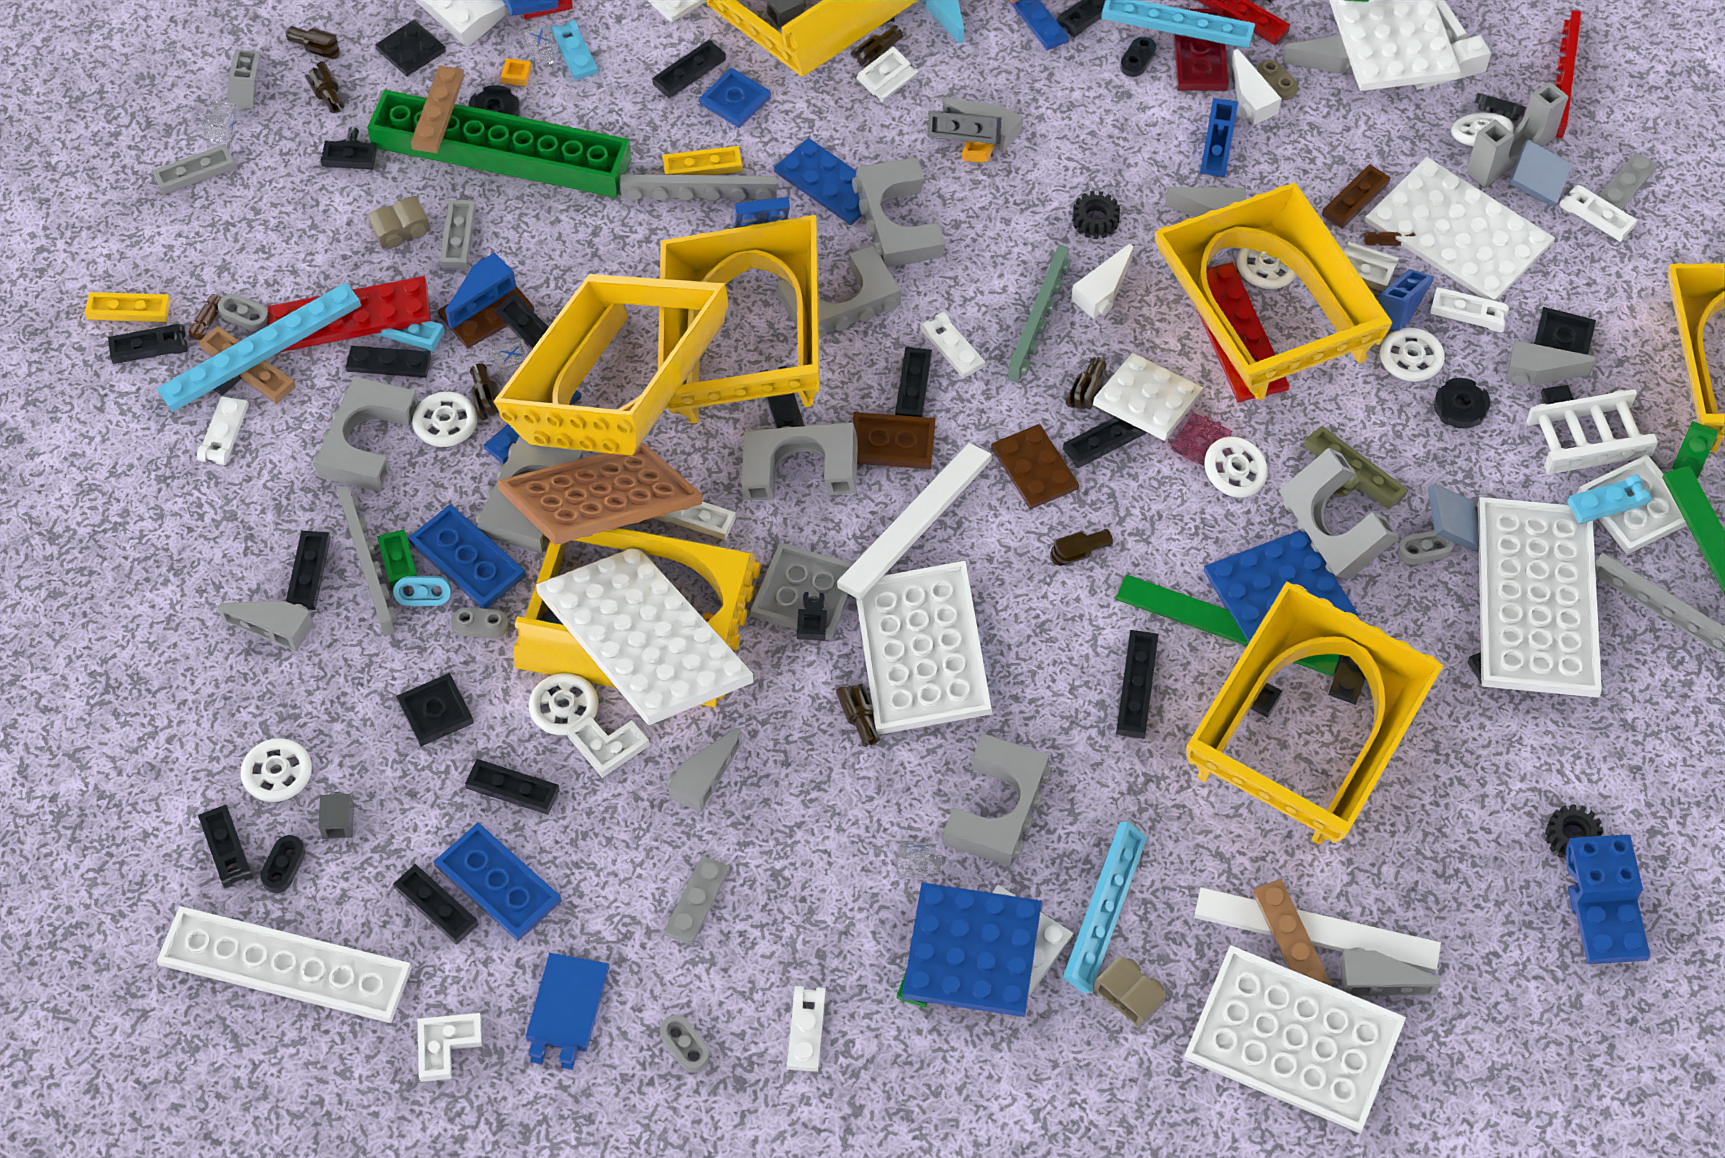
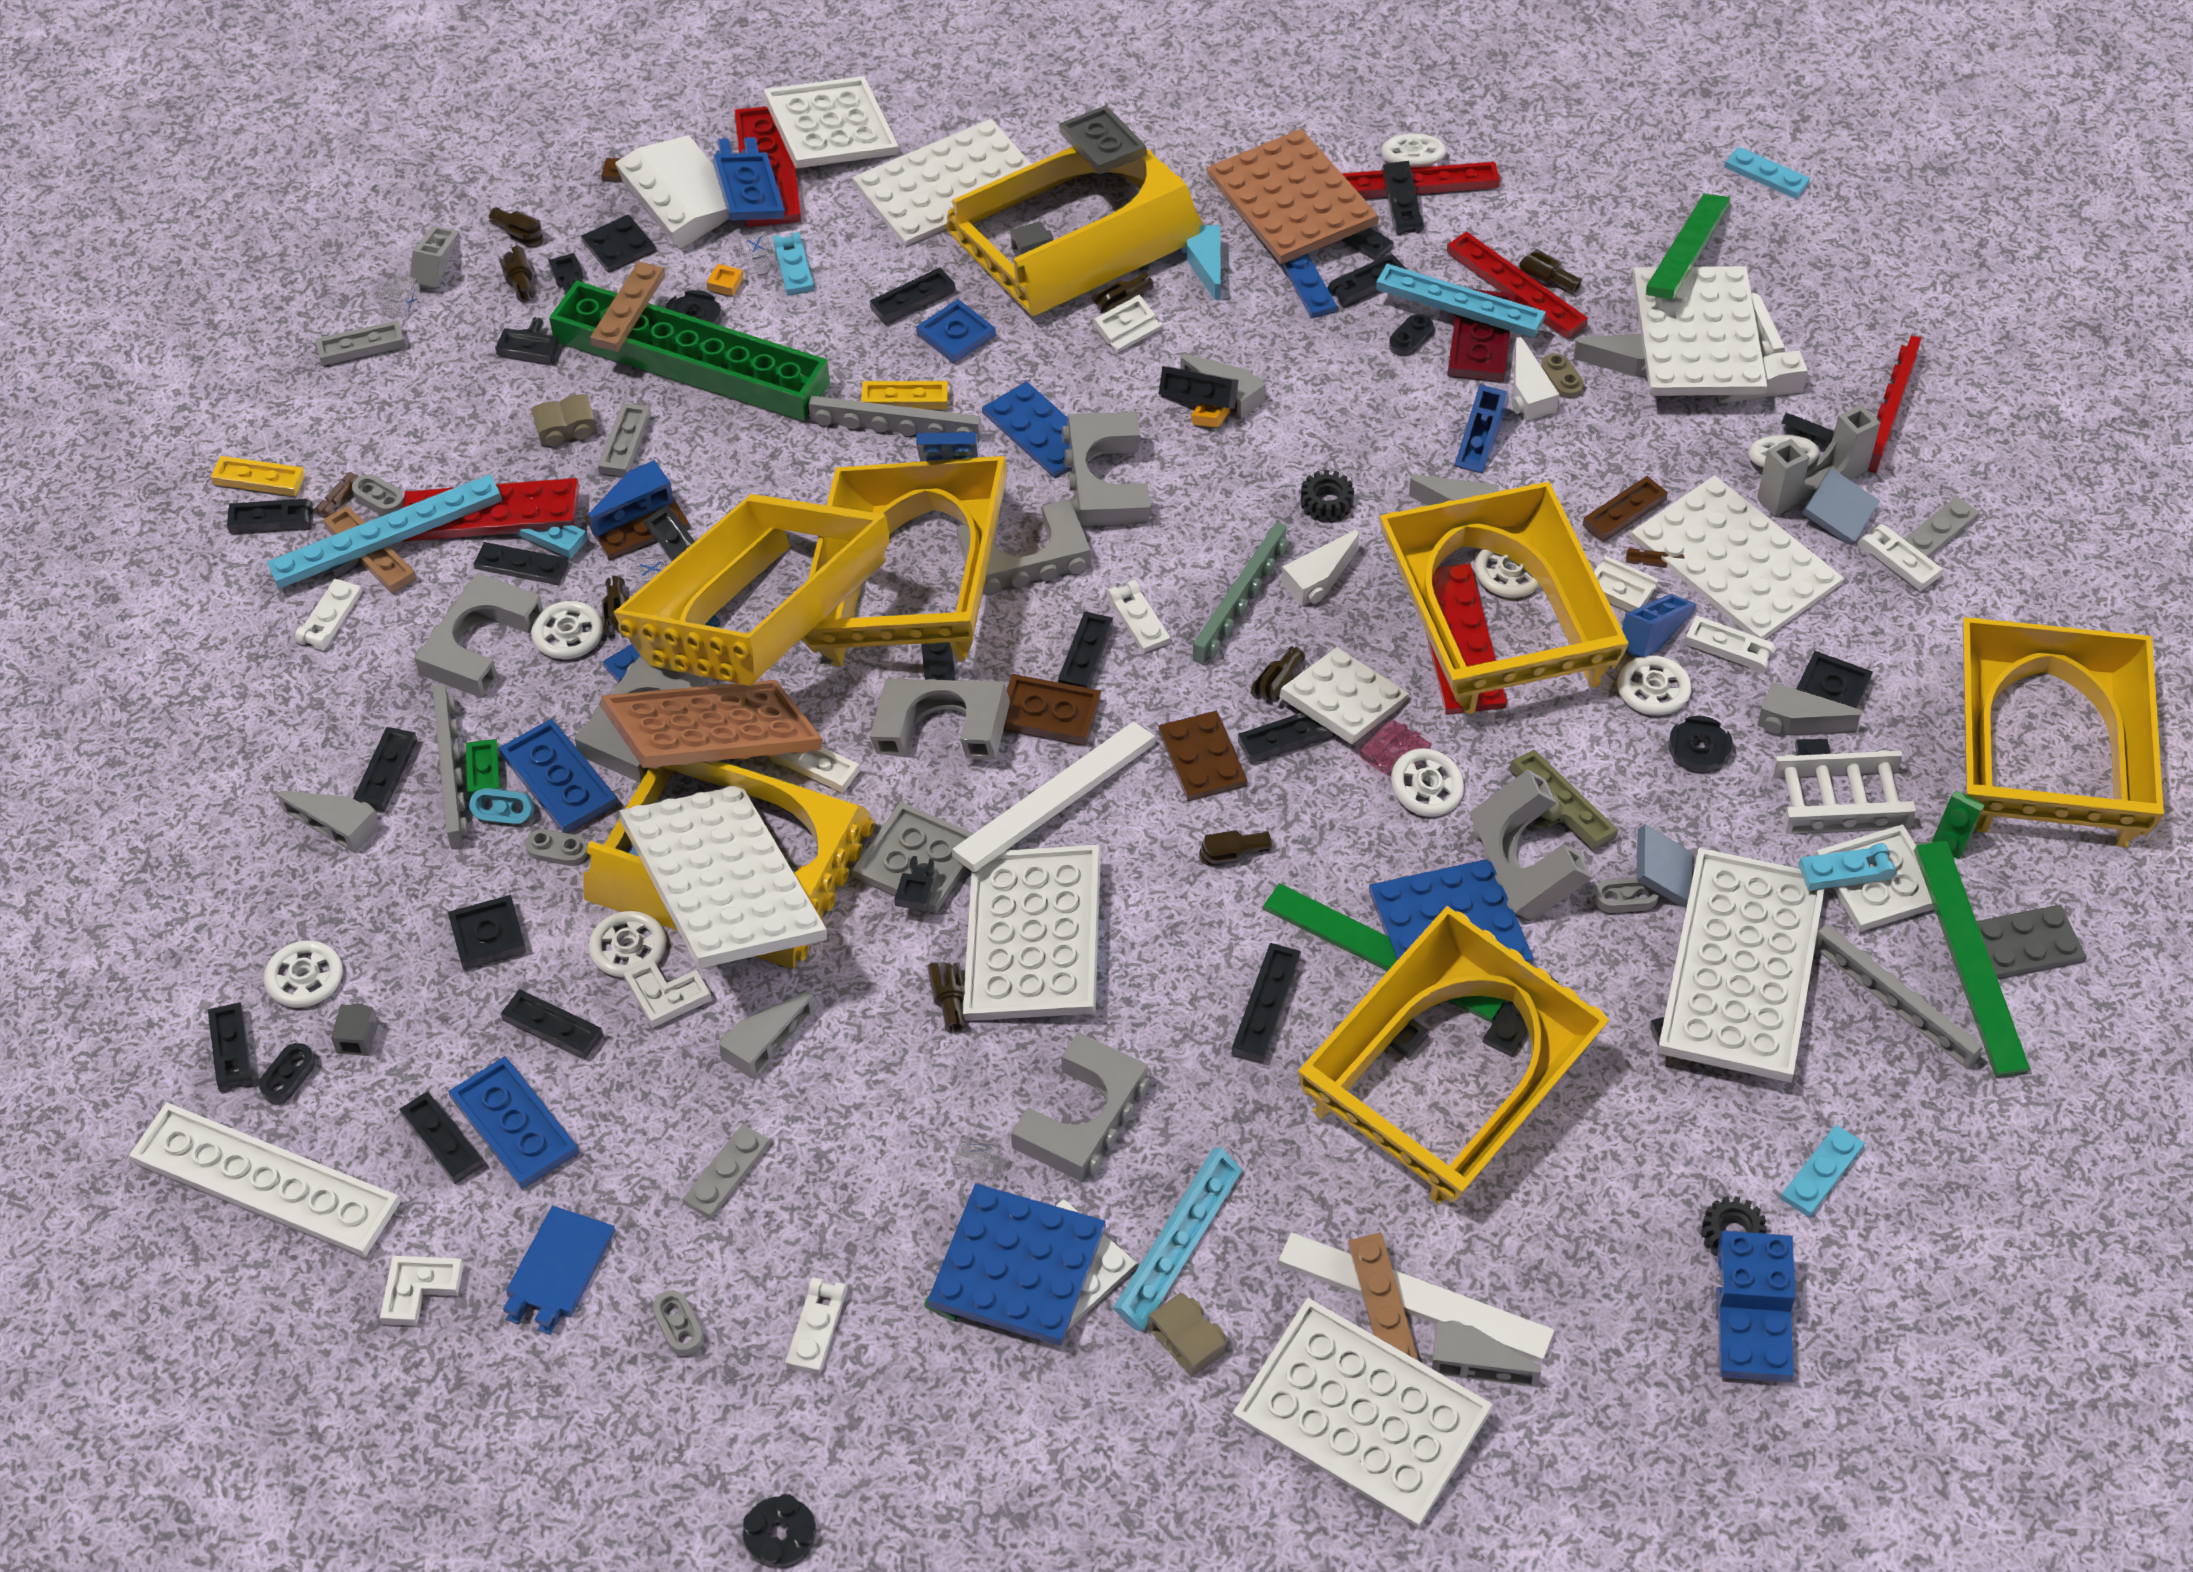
camera: 10 degrees right, 5 degrees down
(370, 80) = (566, 271): none -> black plate
(1637, 771) = (1822, 1171): none -> medium azure plate

